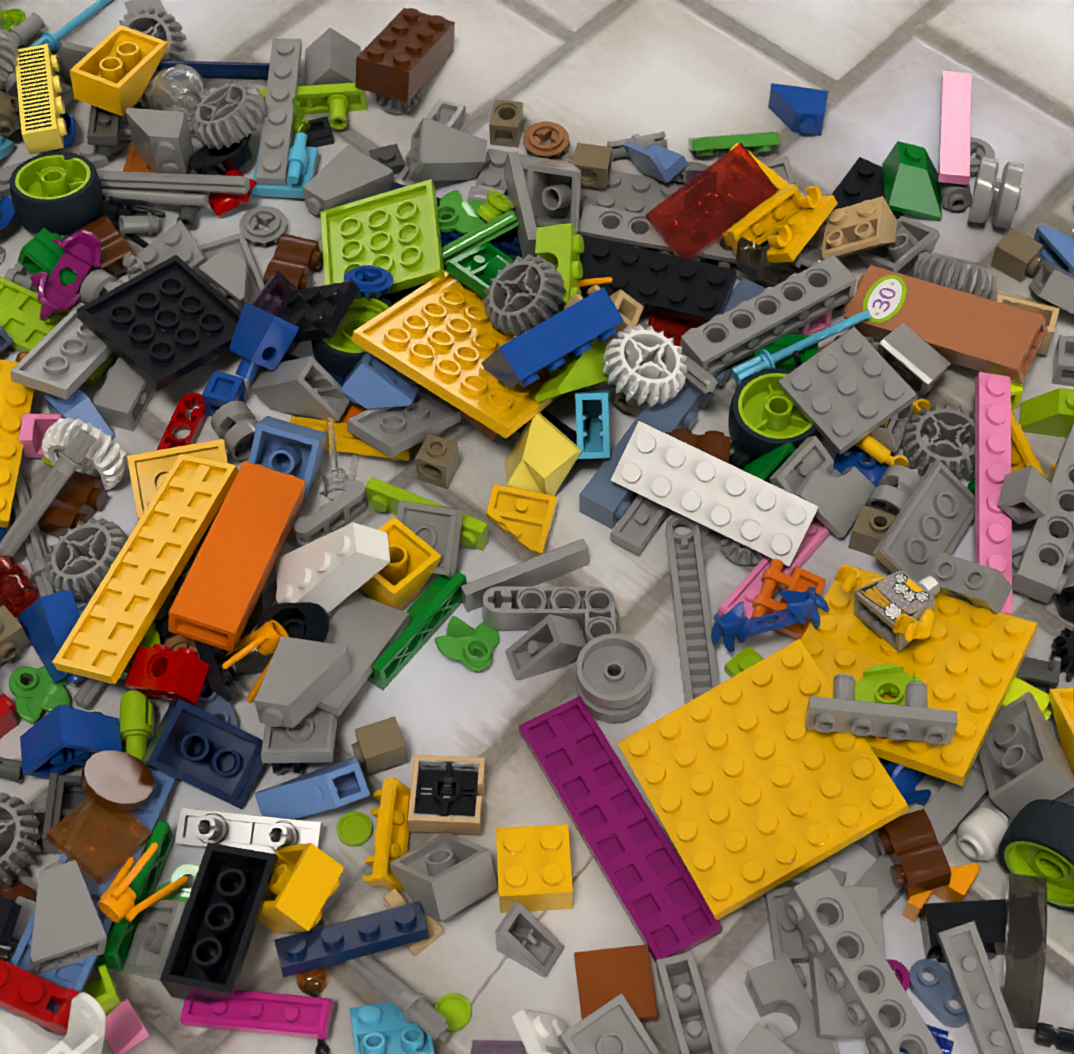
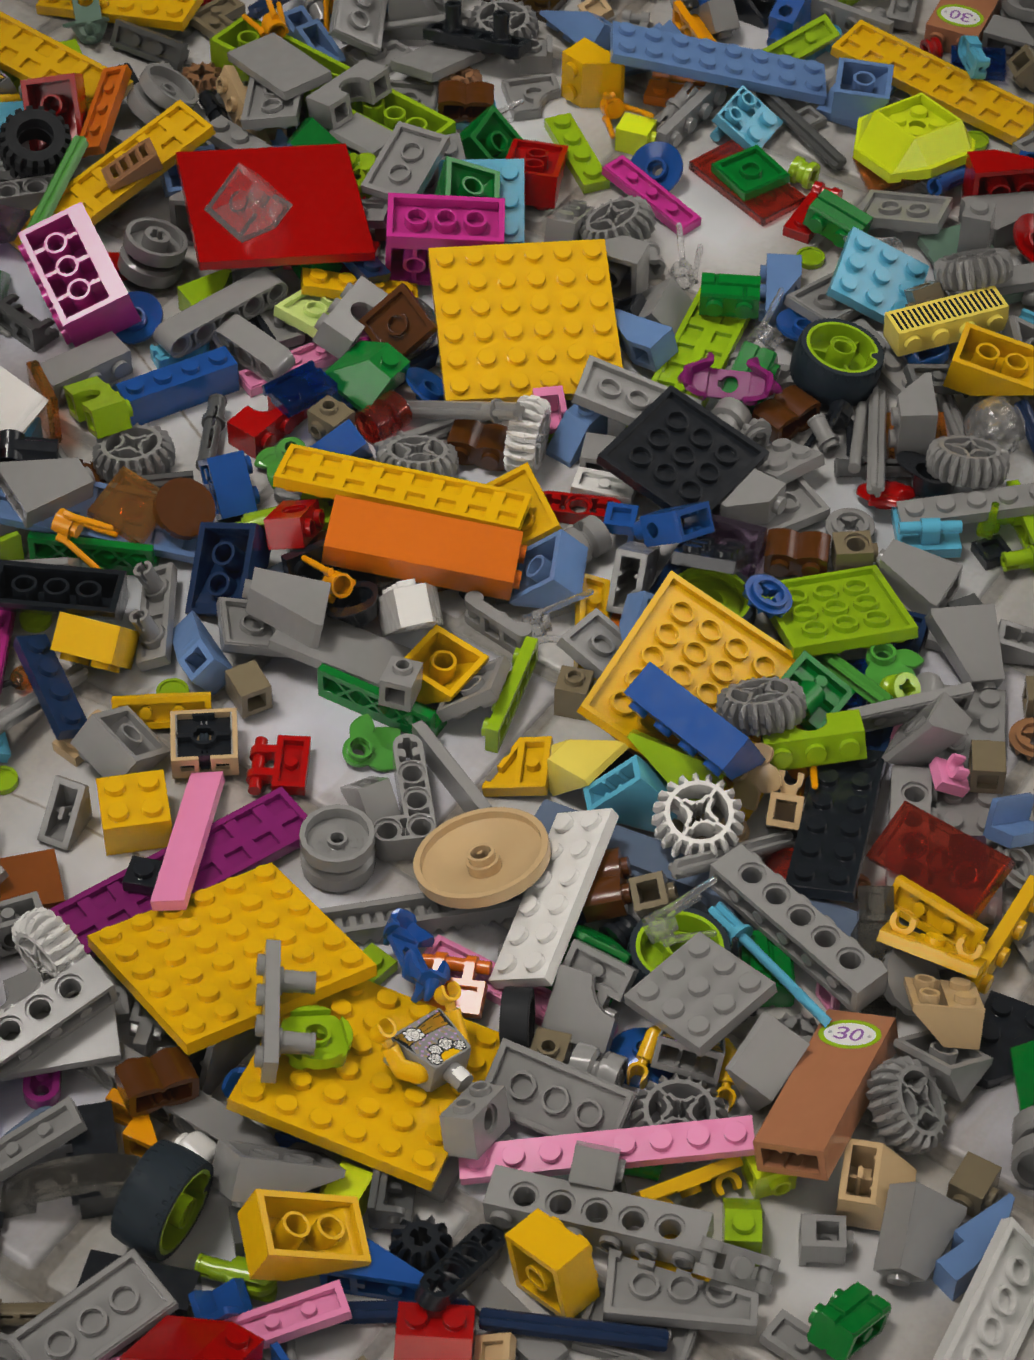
camera: 80 degrees right, 10 degrees down
(158, 409) = (601, 483): none -> white plate
(302, 220) = (852, 550): none -> dark tan brick
(427, 589) = (400, 683): none -> light grey brick
(483, 718) = (290, 764): none -> red plate
(591, 813) = (187, 841): none -> bright pink tile
(597, 193) = (950, 775): none -> bright pink tile
(629, 860) = (141, 875): none -> black plate
(660, 546) = (482, 857): none -> tan dish
(714, 415) = (651, 892): none -> dark tan brick
(740, 947) = (46, 943): none -> white gear
(765, 410) = (662, 923): none -> clear plant
(841, 543) = (517, 1015): none -> black tyre

